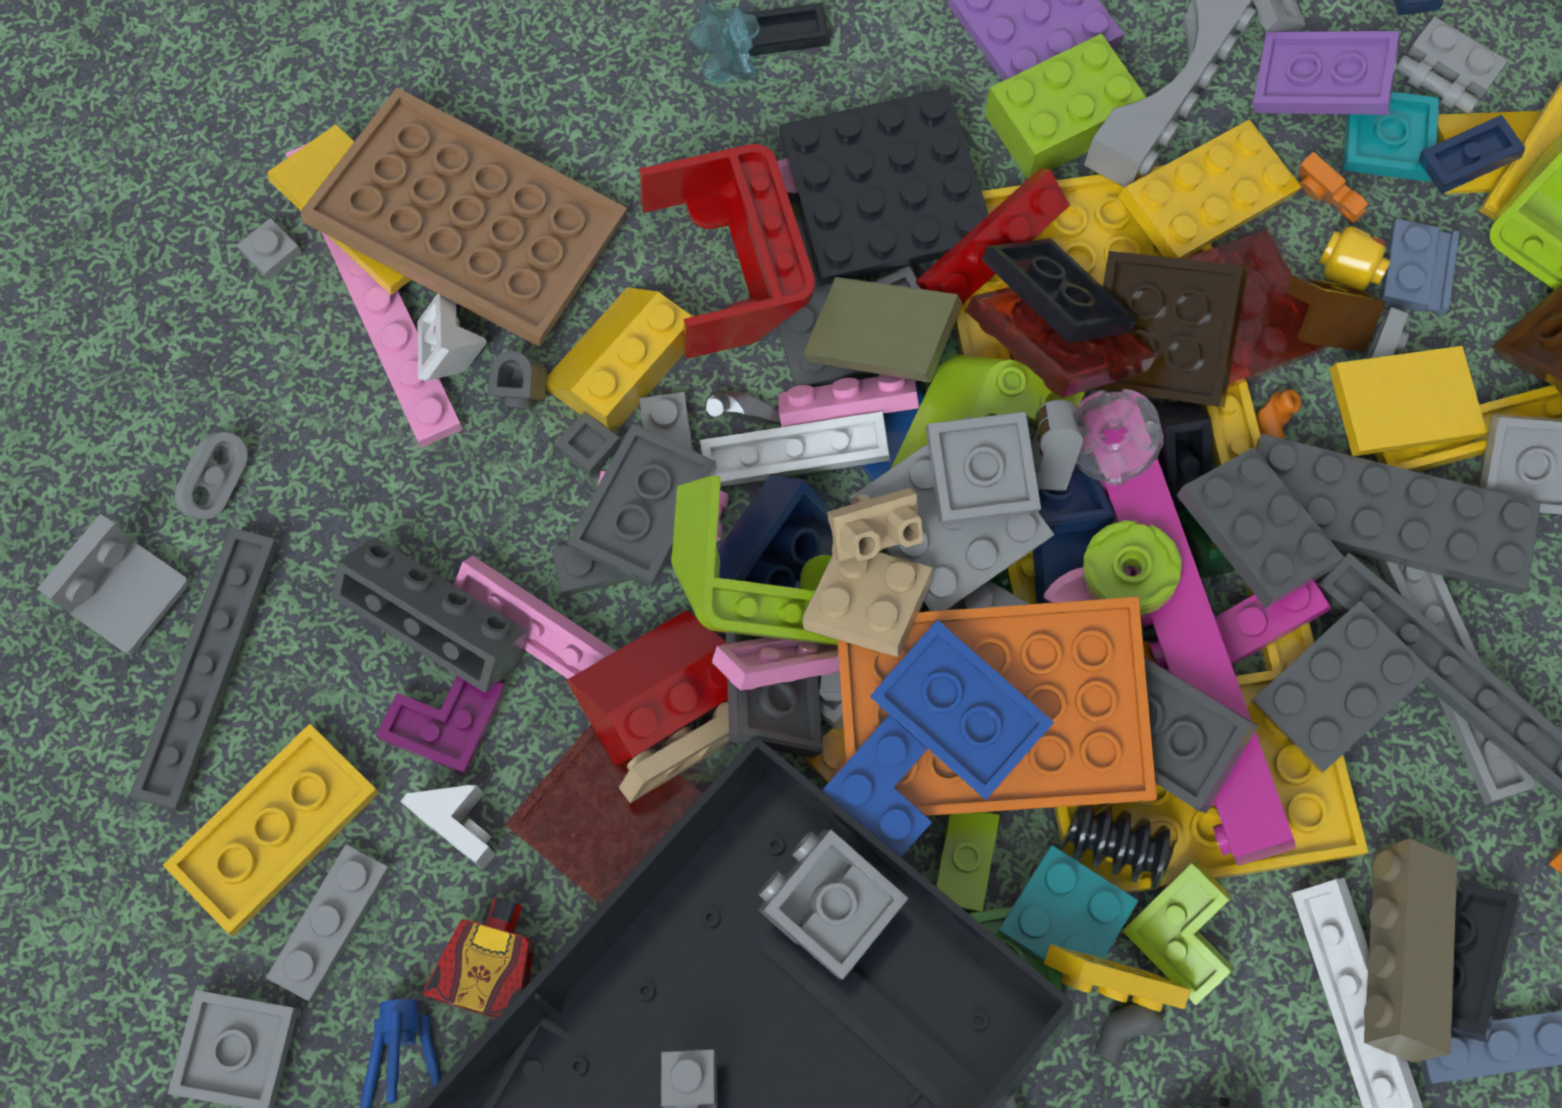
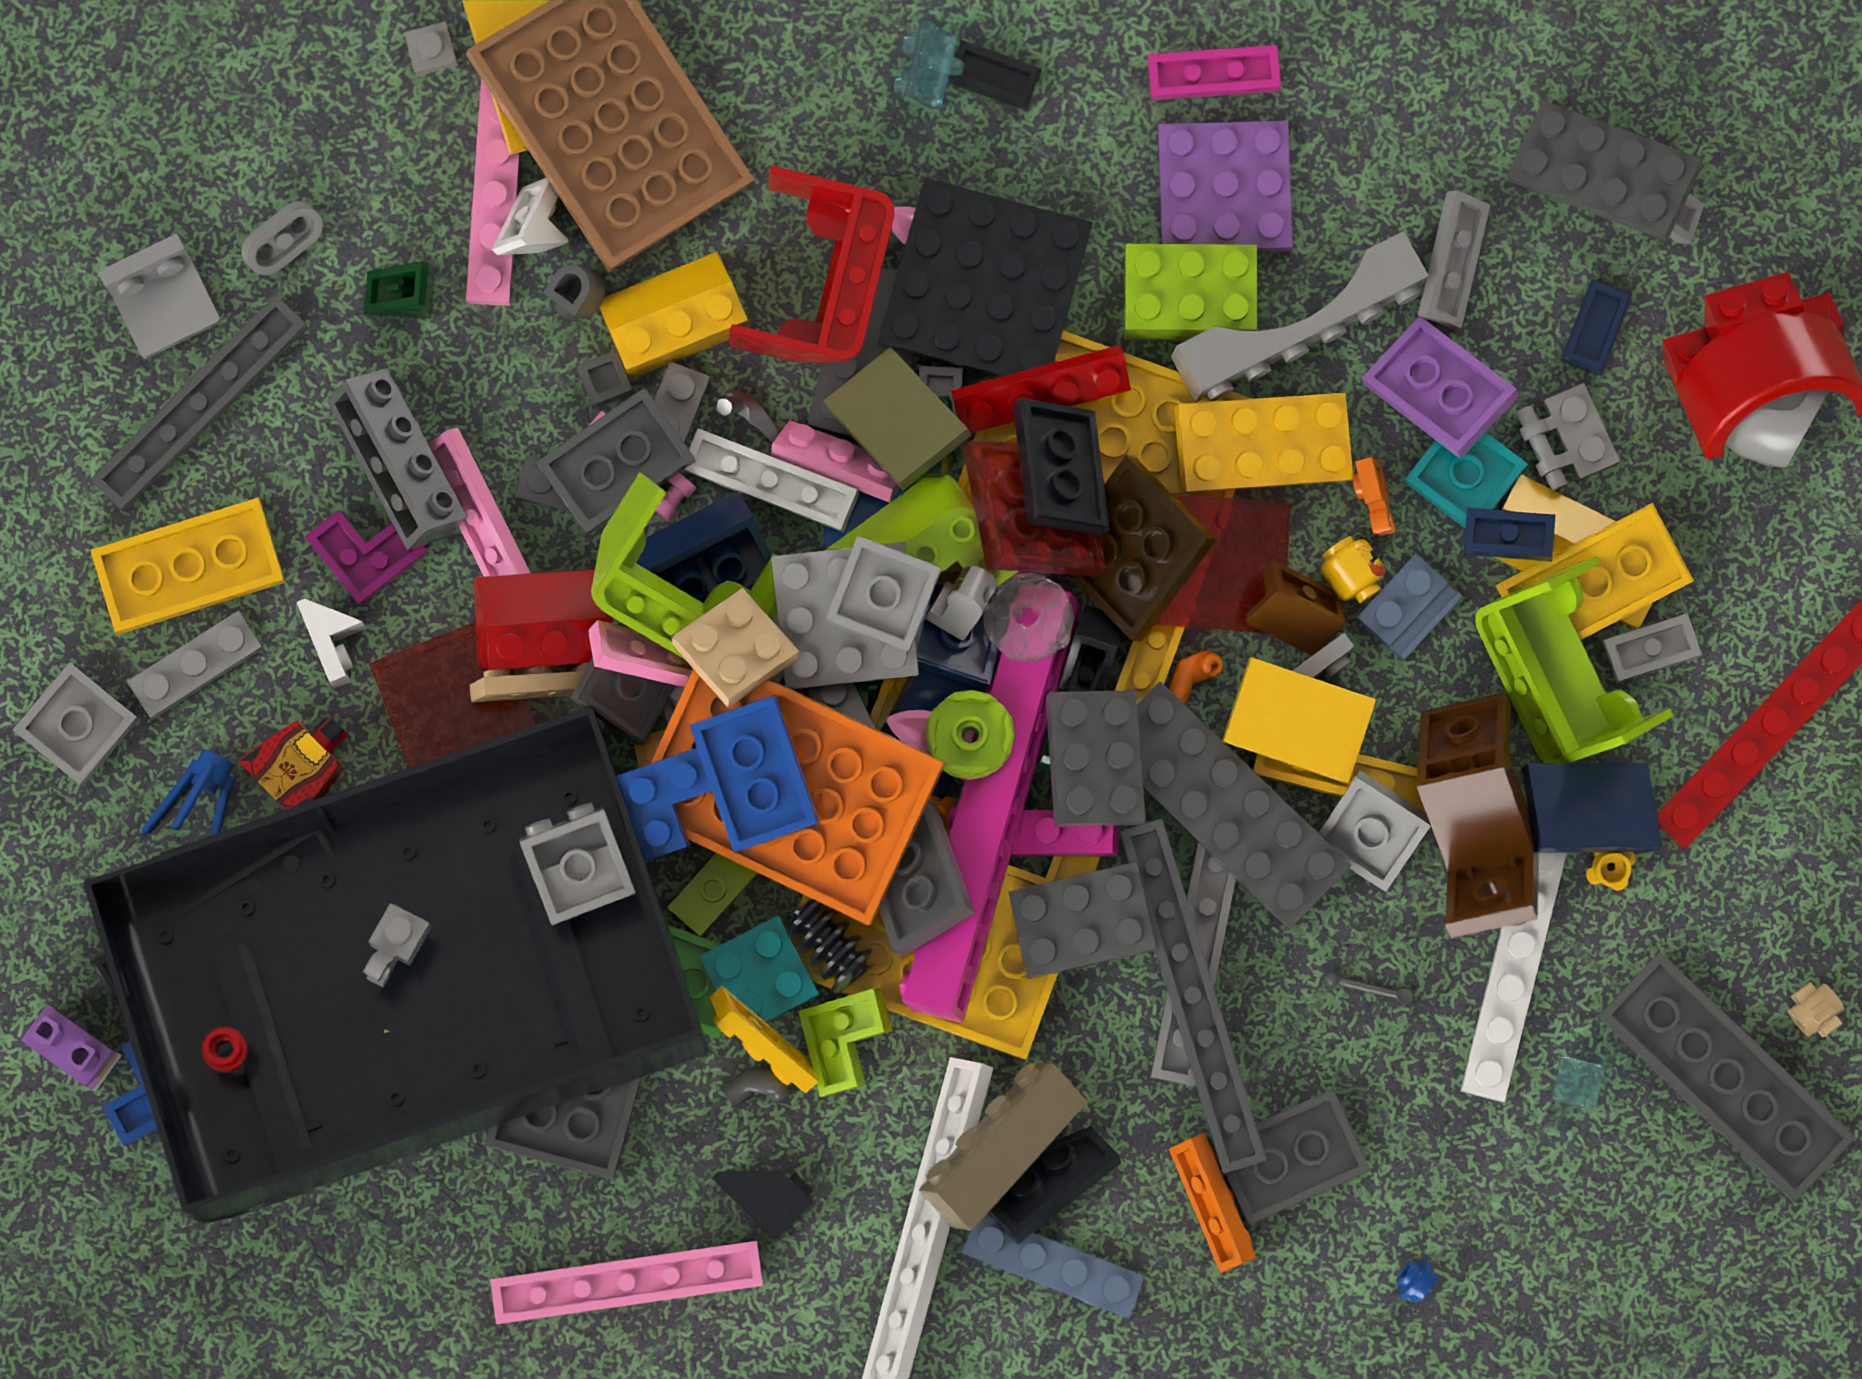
camera: 30 degrees right, 10 degrees up
(351, 464) = (400, 291): none -> dark green slope
(875, 524) = (769, 593): tan hips -> none

